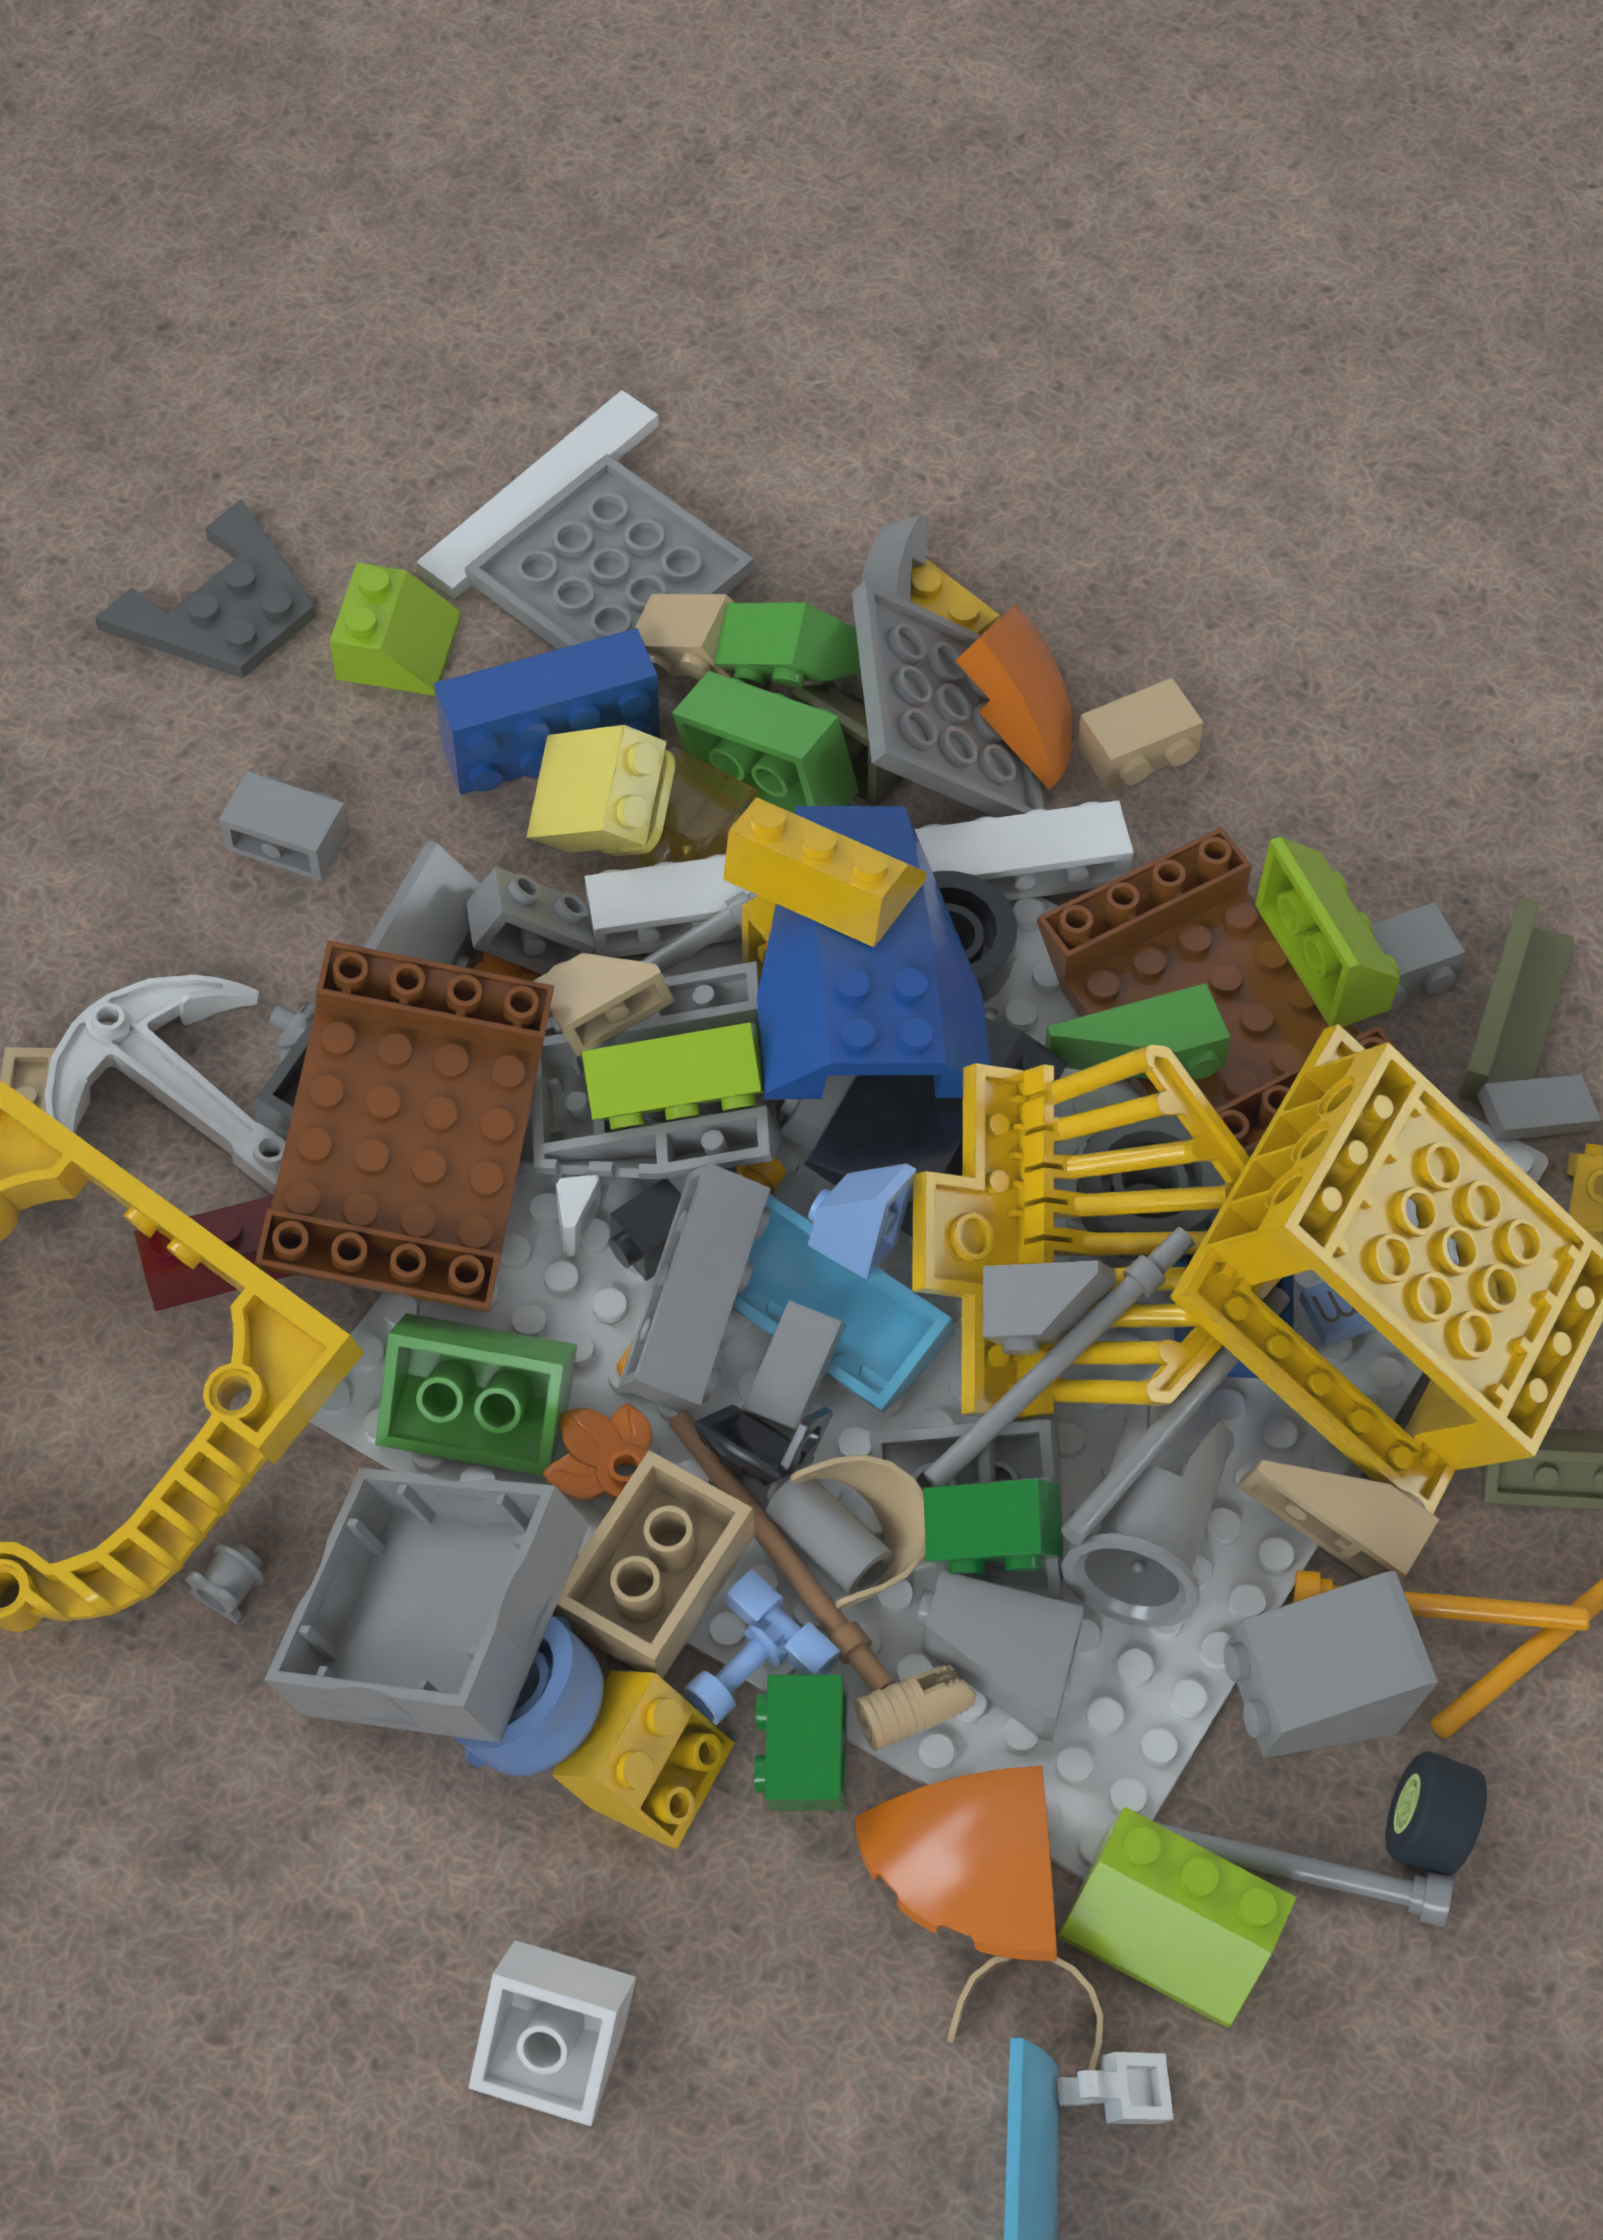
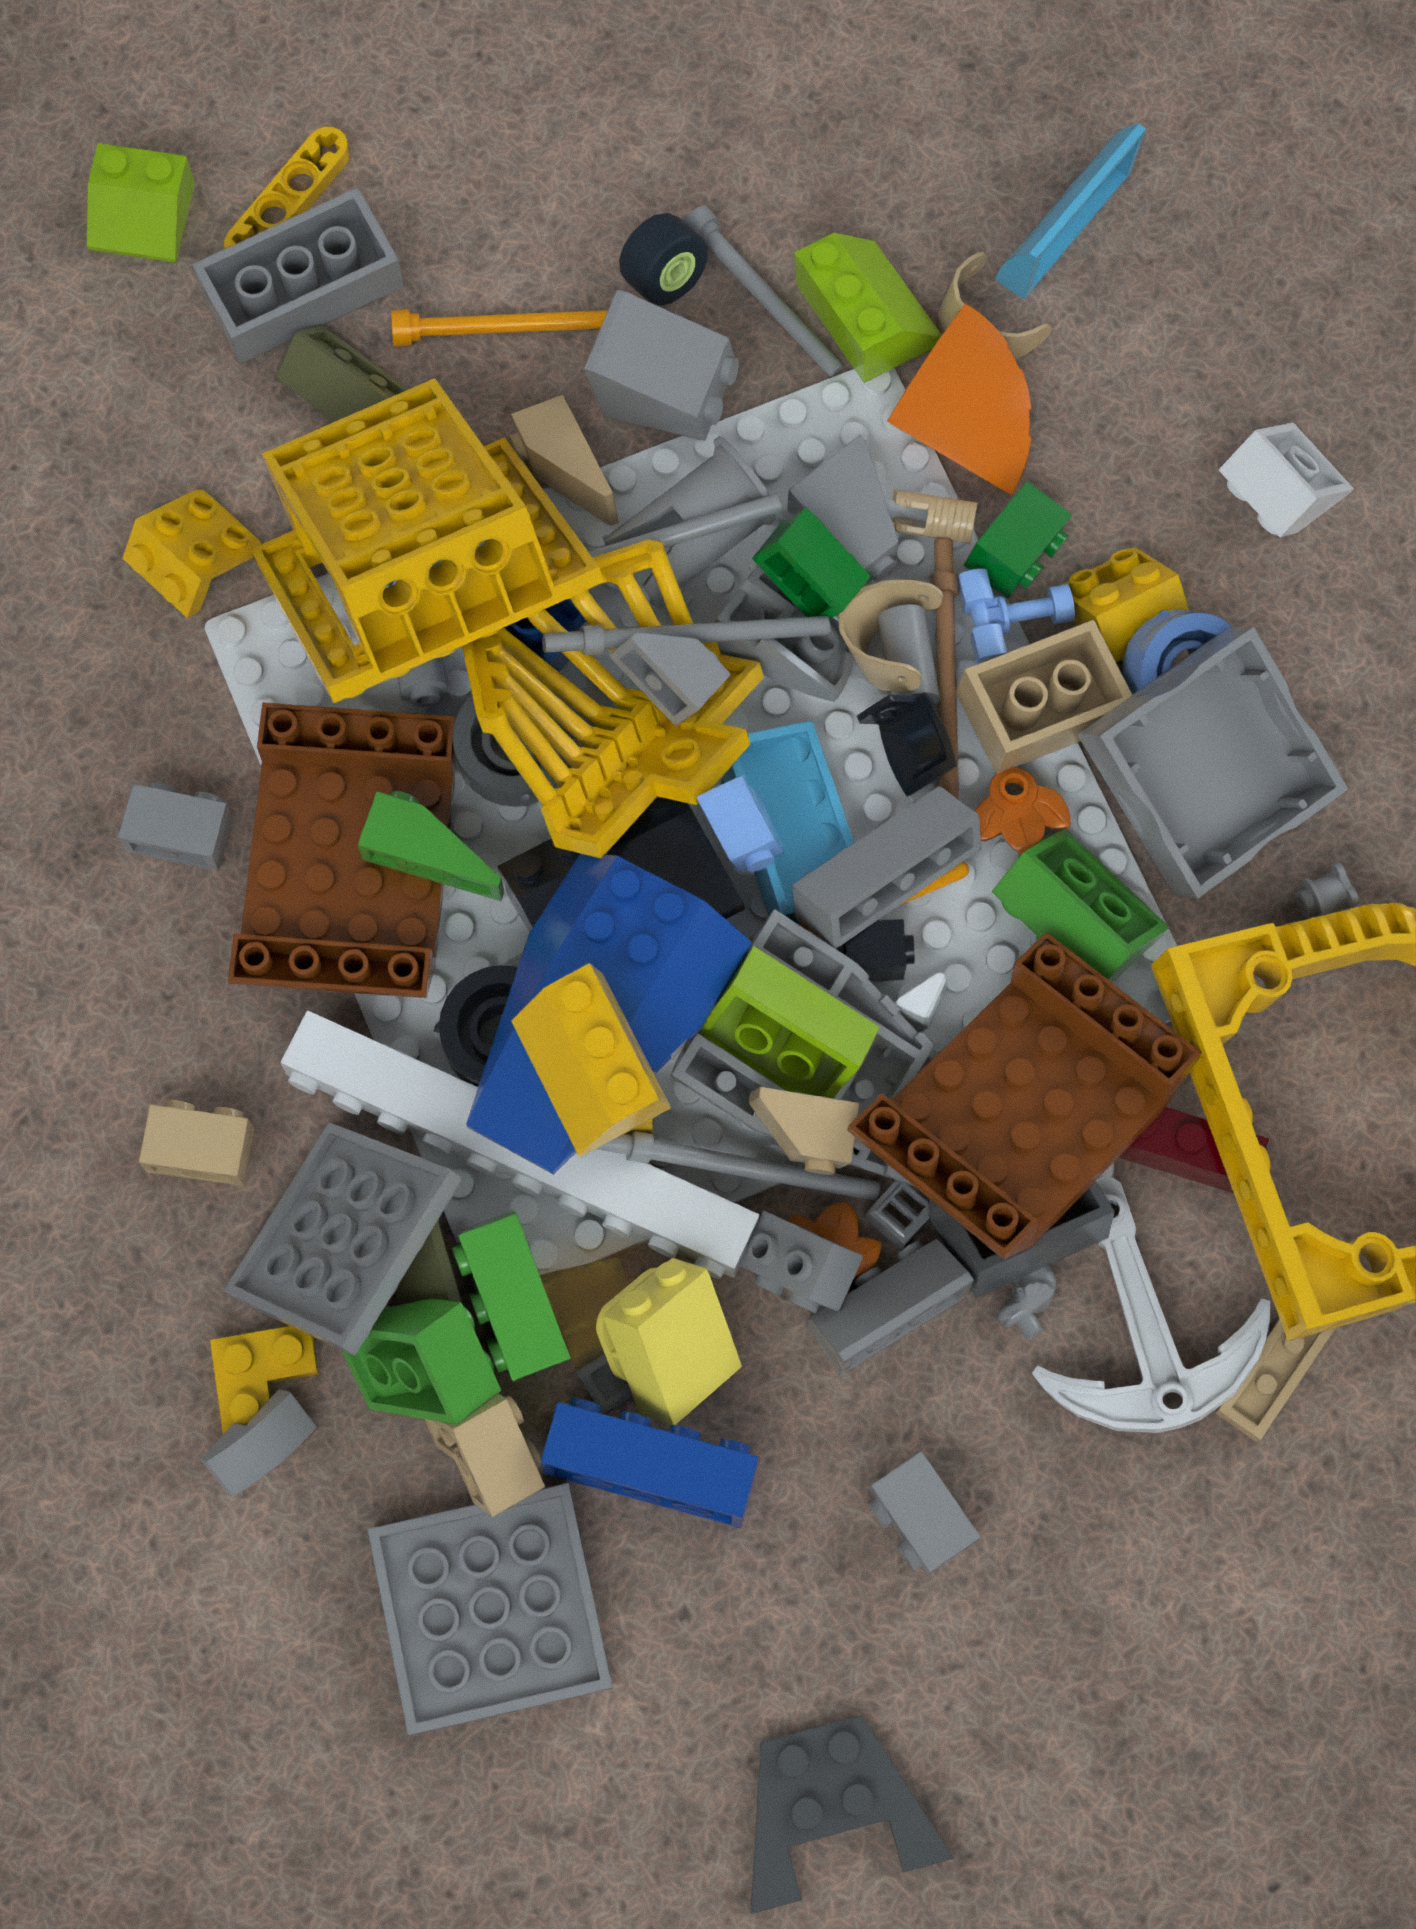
camera: 145 degrees left, 15 degrees up
(392, 631) = (712, 1658): lime slope -> none
(610, 431) = (485, 1746): white tile -> none
(794, 1366) = (850, 784): light grey tile -> none
(1025, 692) = (257, 1239): orange brick -> none
(1128, 2084) = (966, 232): white plate -> none
(1325, 935) = (232, 835): lime slope -> none
(1467, 1608) = (620, 435): light orange piece -> none
(1518, 1003) = (126, 740): olive panel -> none
(1539, 1107) = (181, 654): light grey tile -> none

